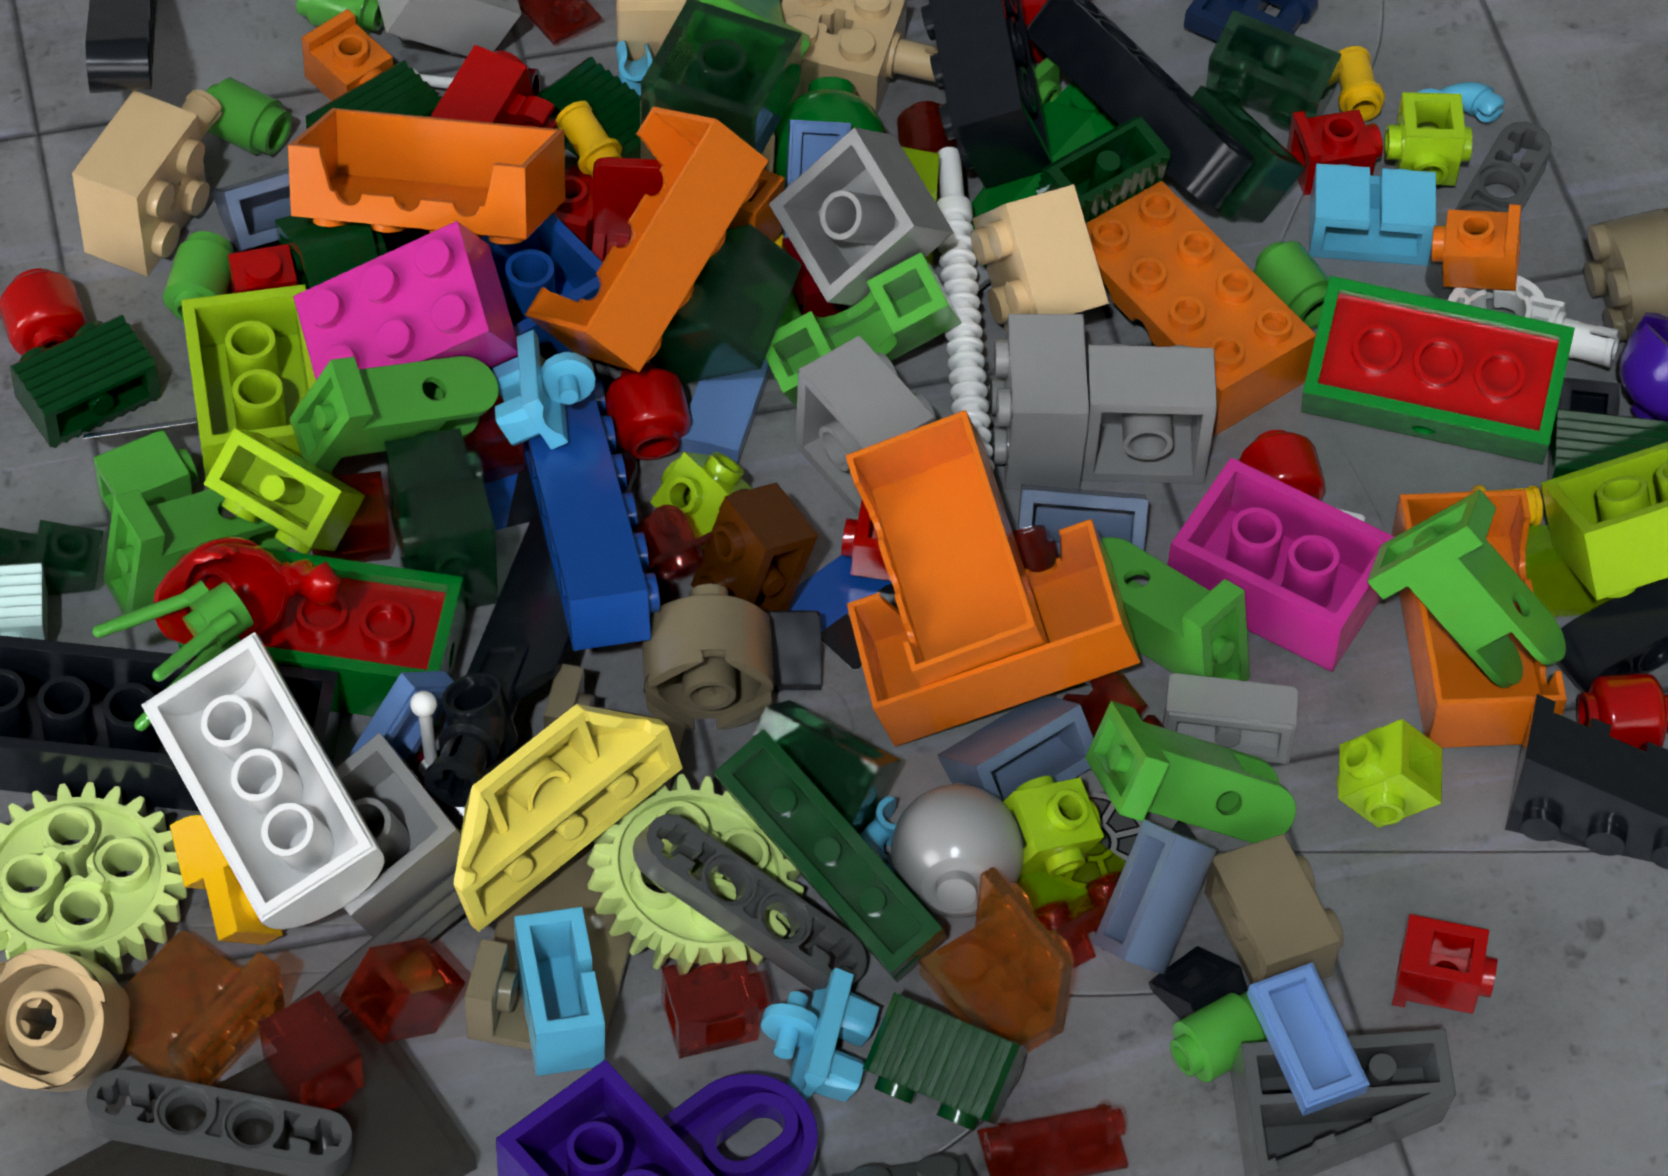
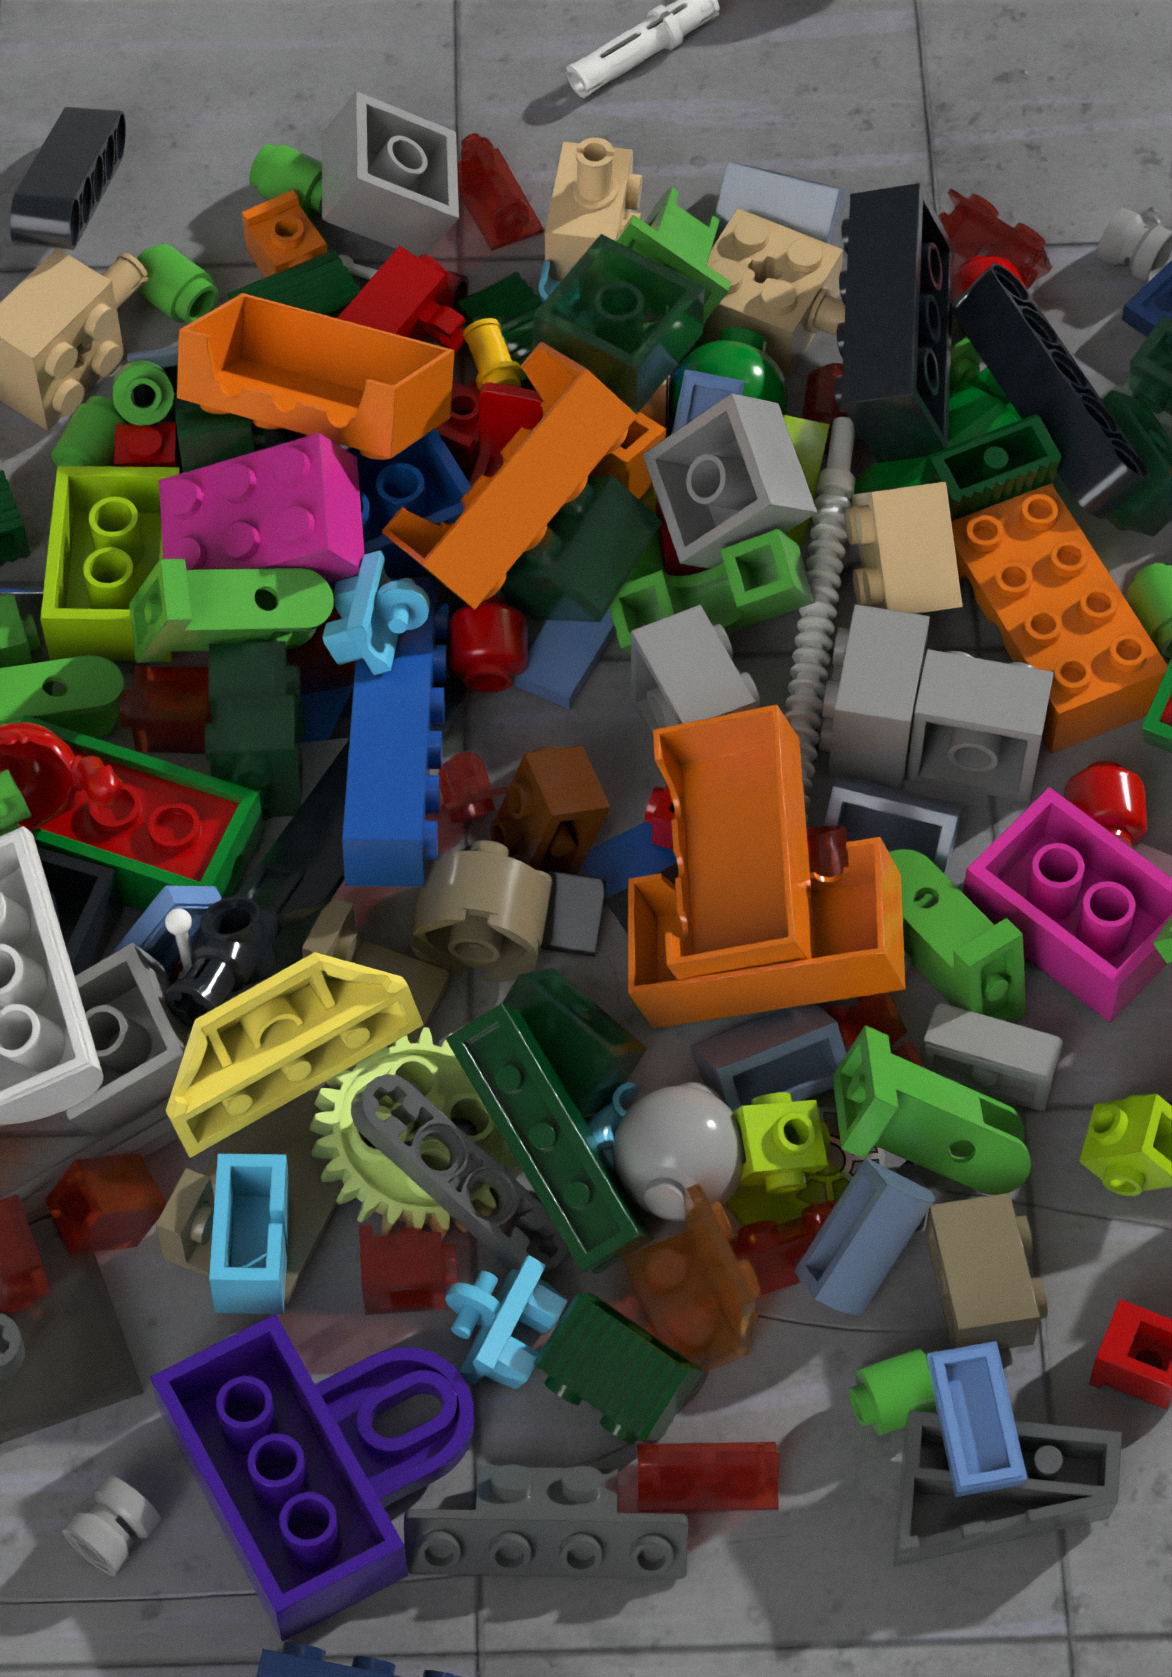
camera: 15 degrees right, 5 degrees up
(230, 219) = (142, 373): none -> bright green brick
(284, 491) = (102, 678): lime brick -> none
(698, 487) = (512, 729): lime brick -> none
(1197, 981) = (895, 1328): black slope -> none

